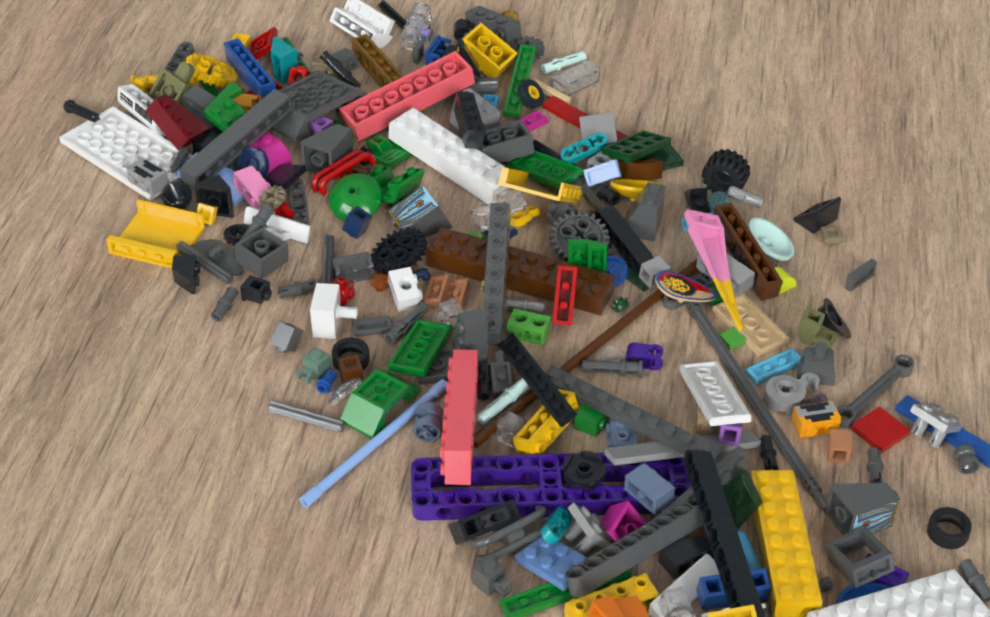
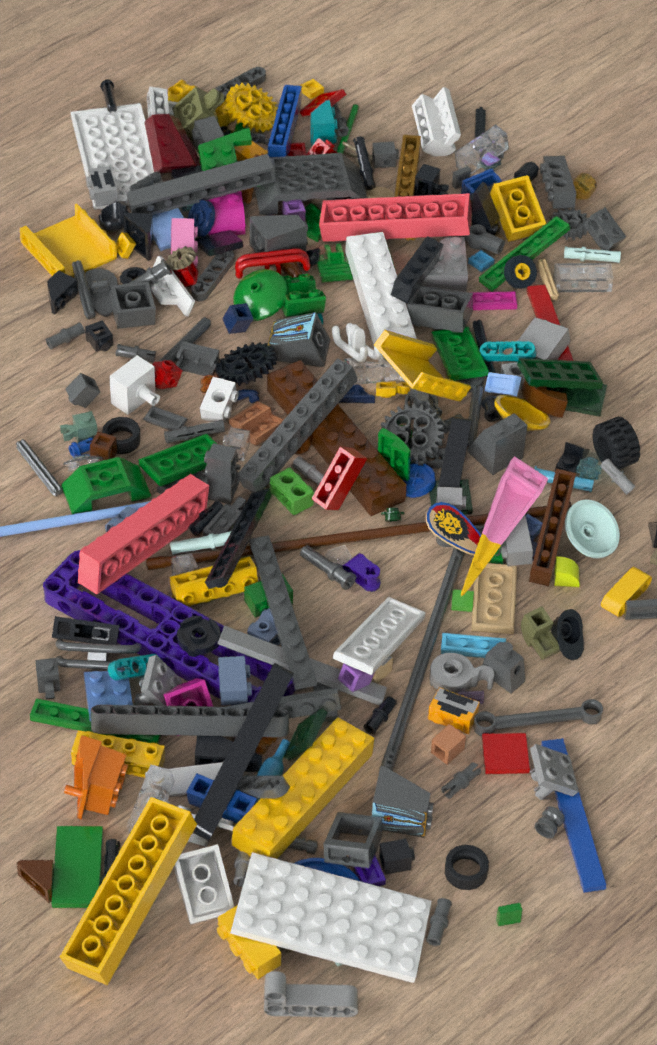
camera: 35 degrees right, 5 degrees up
(404, 61) = (428, 181): none -> black brick
(468, 196) = (355, 344): none -> white piece
(559, 41) = (604, 230): none -> dark grey brick
(775, 554) = (263, 786): none -> dark grey beam
(834, 270) = (628, 588): none -> yellow beam
(900, 548) = (396, 856): none -> black brick

